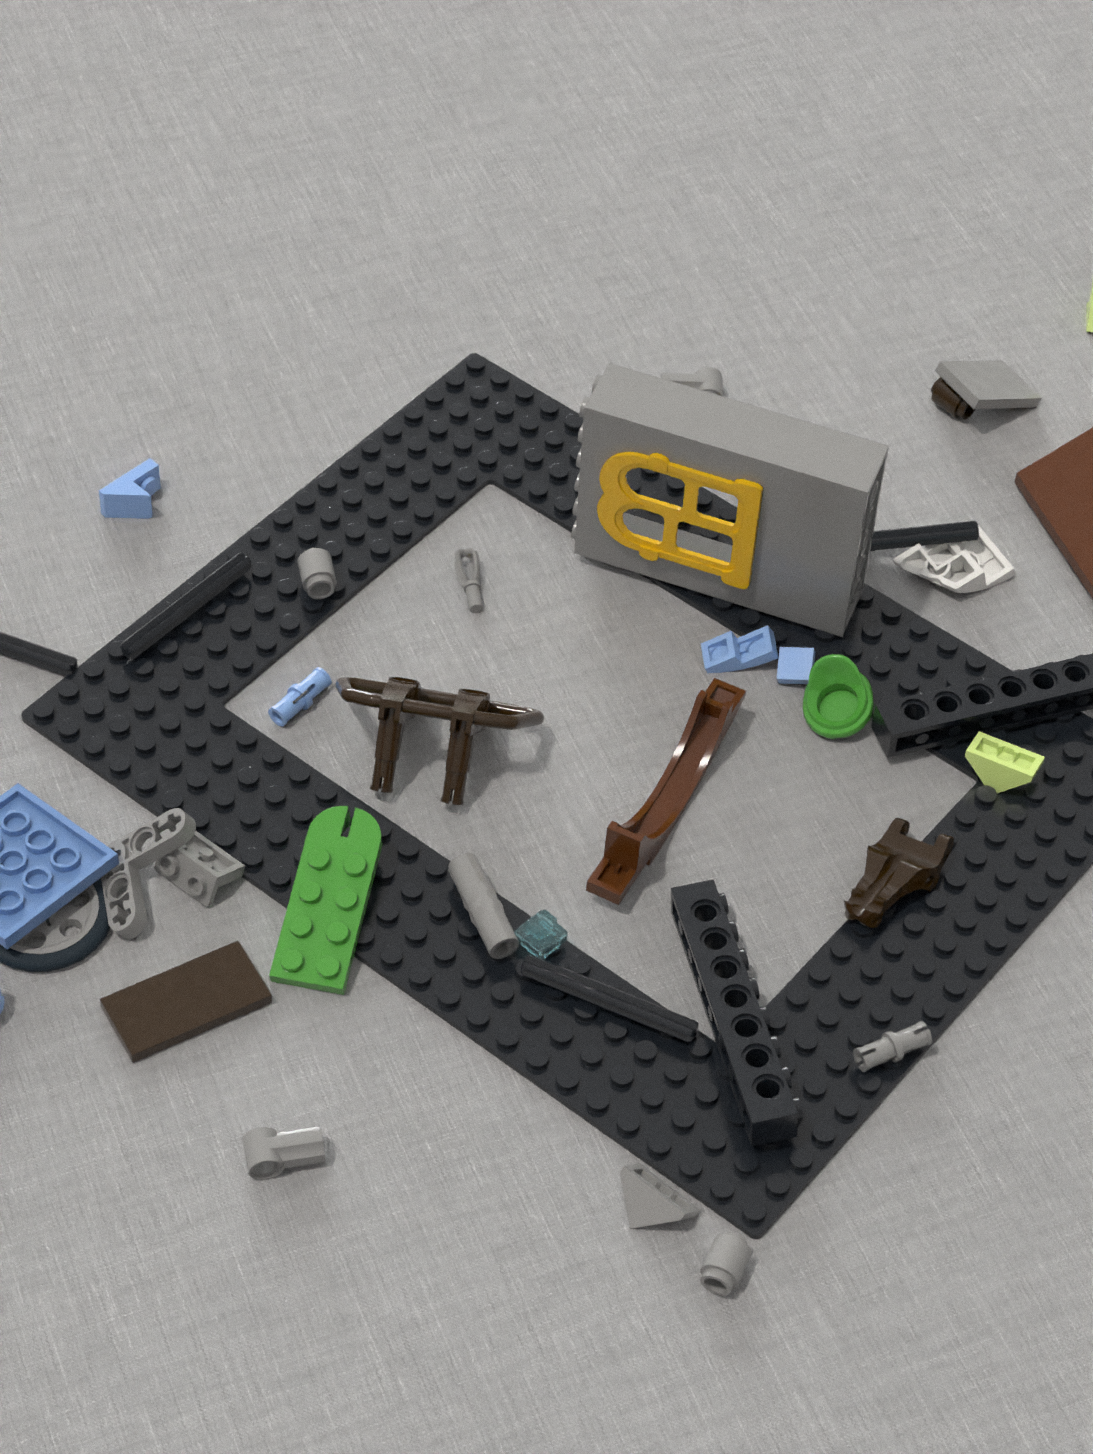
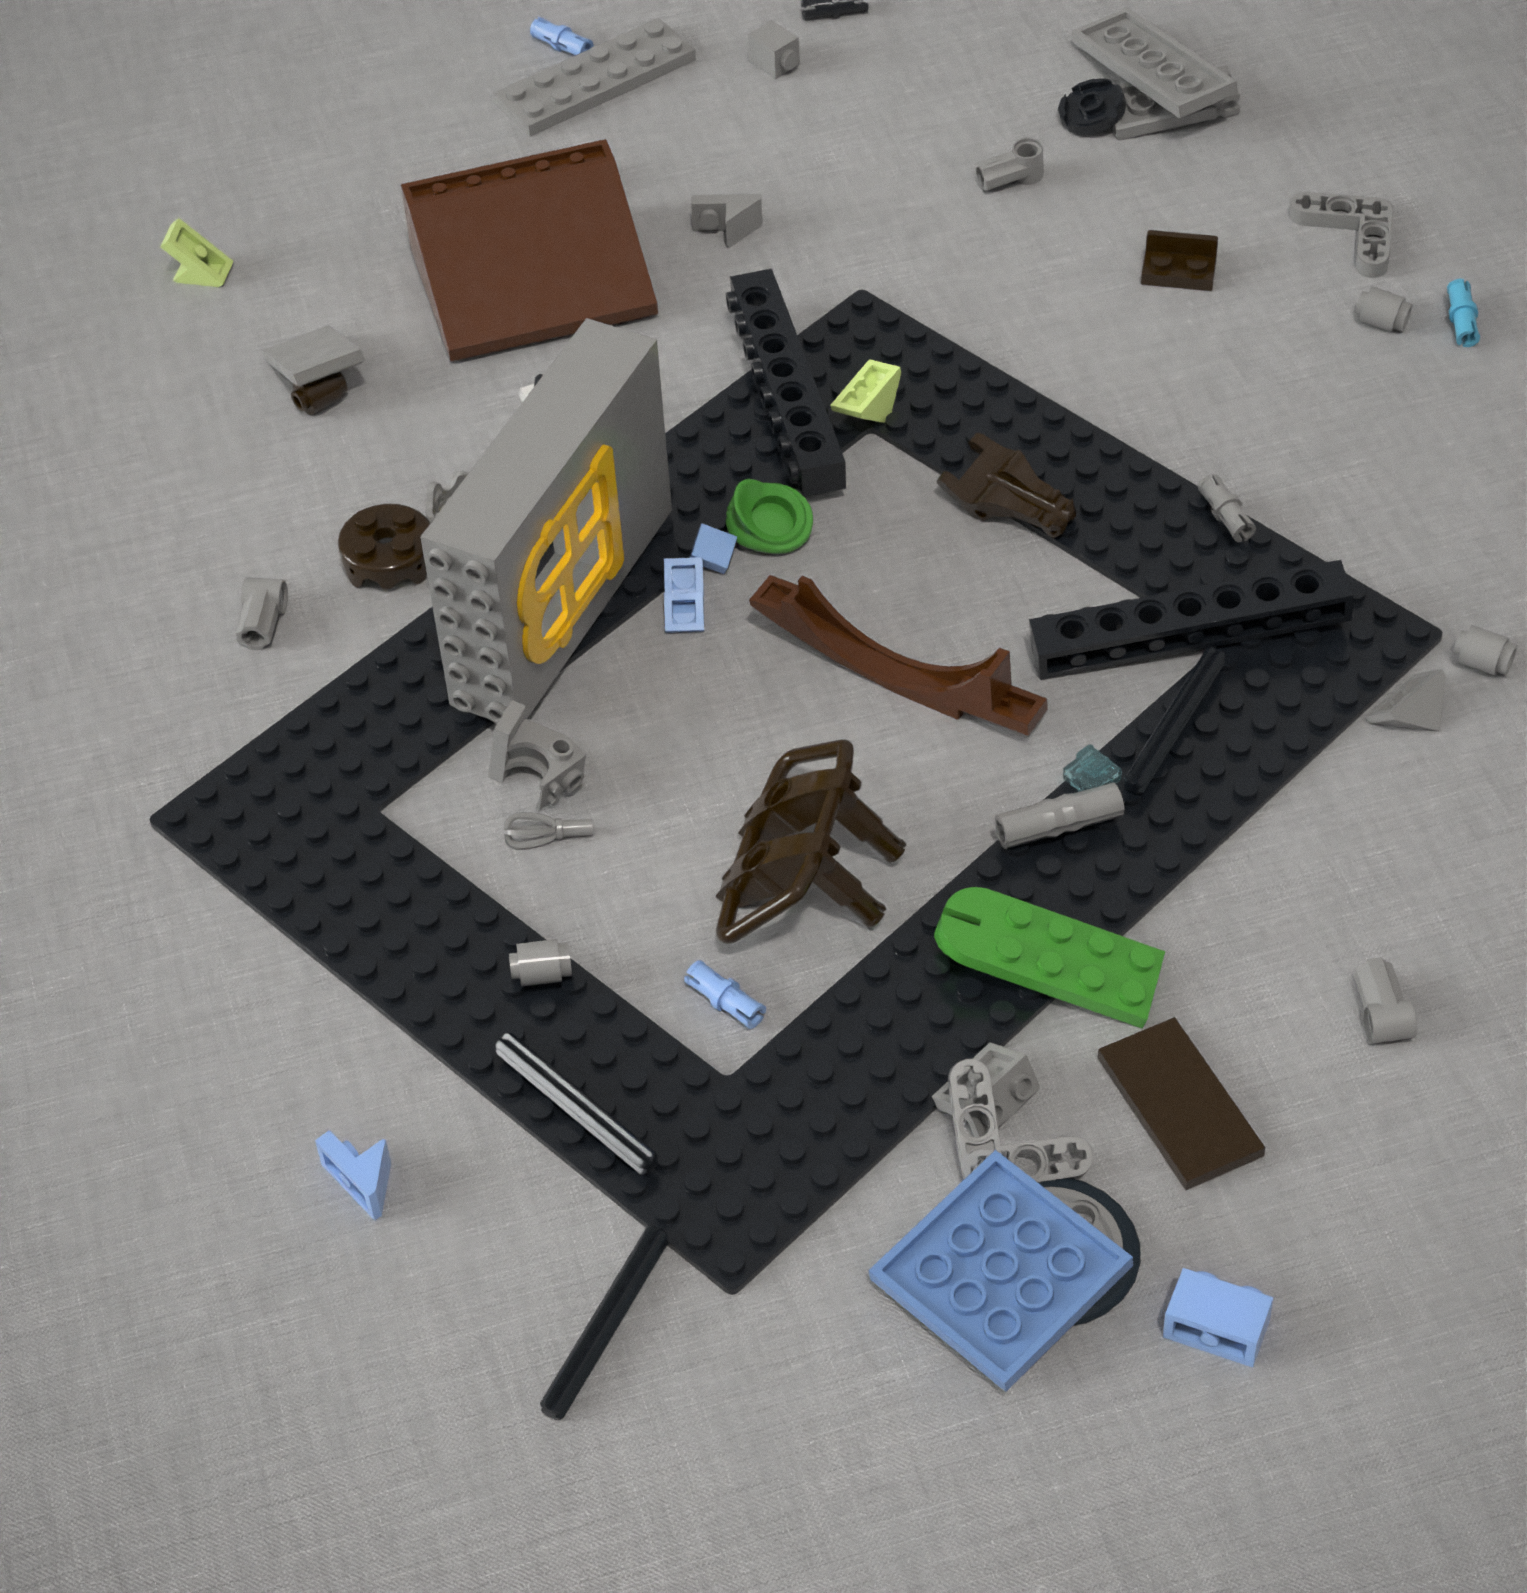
camera: 80 degrees left, 0 degrees up
(543, 549) = (531, 745): none -> light grey tile

